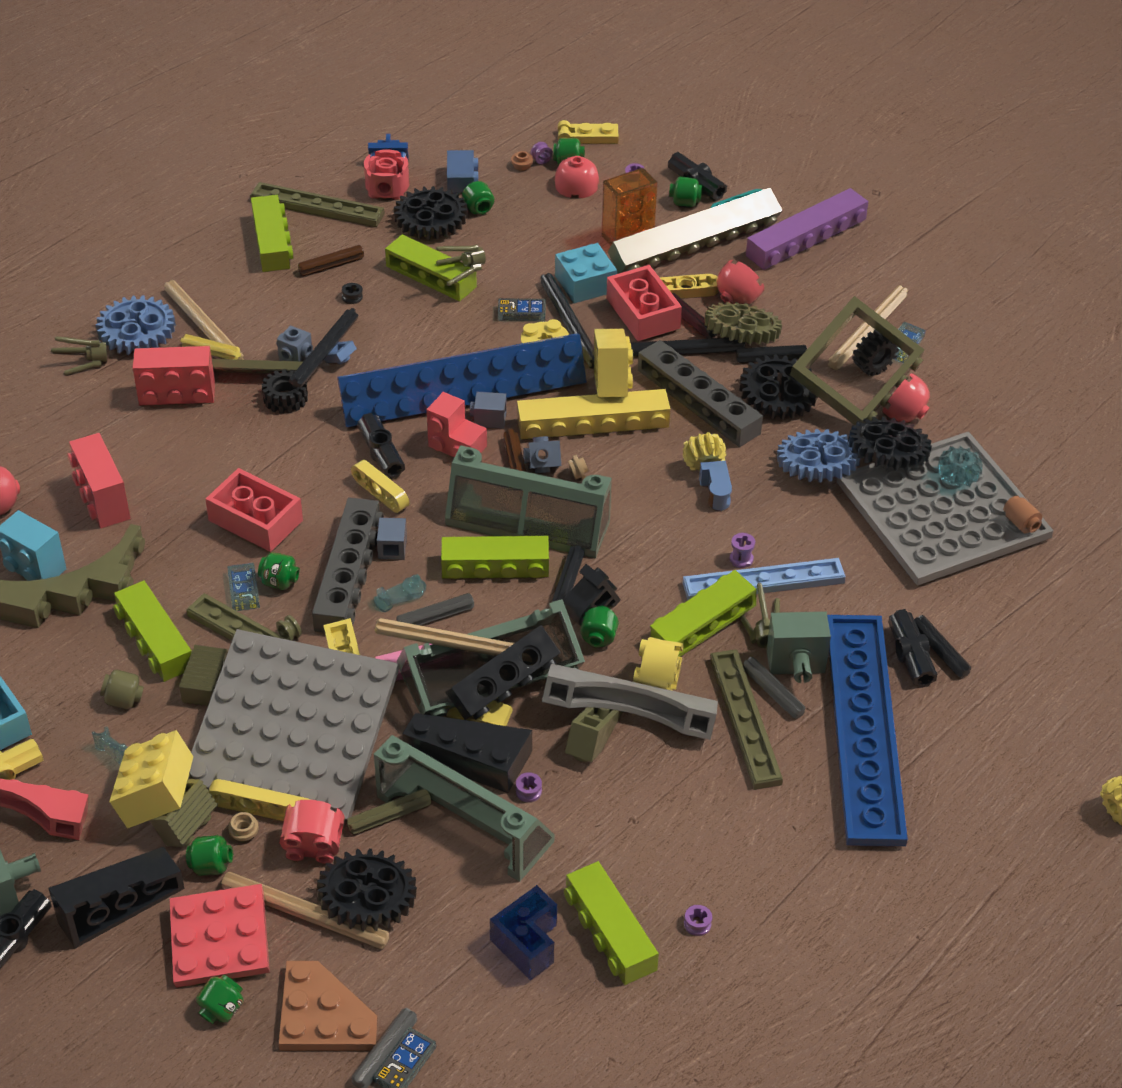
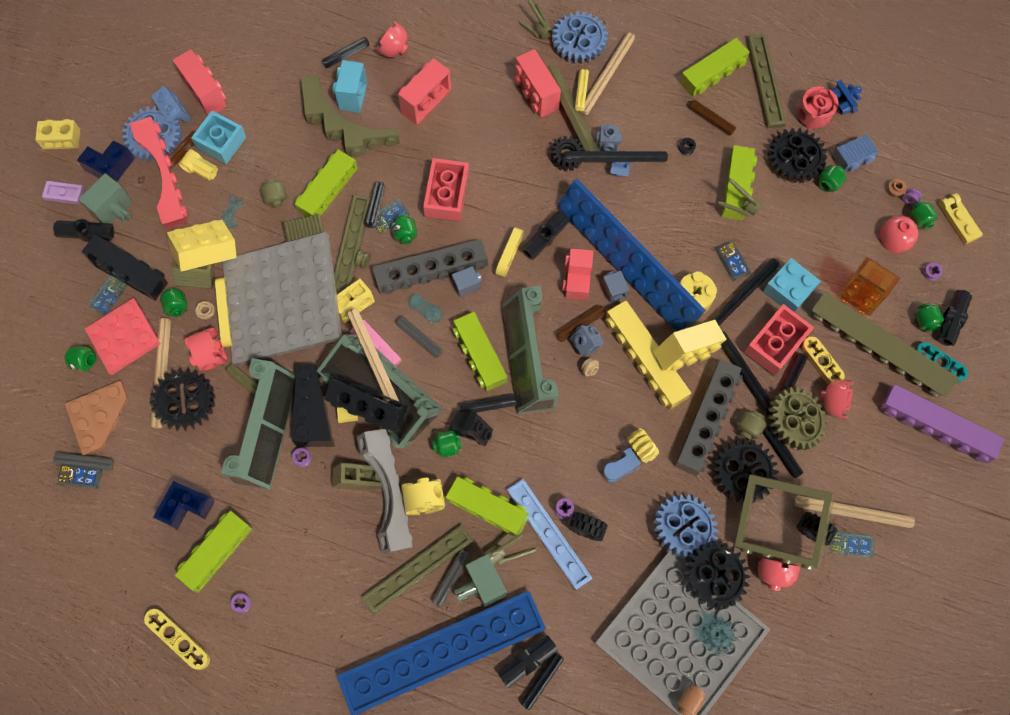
camera: 65 degrees right, 25 degrees up
(136, 942) = (107, 295): none -> clear light blue tile
(220, 589) = (374, 205): none -> black axle
(710, 1005) = (178, 637): none -> light yellow beam
(728, 361) = (751, 425): none -> olive head
(777, 531) = (587, 526): none -> black tyre

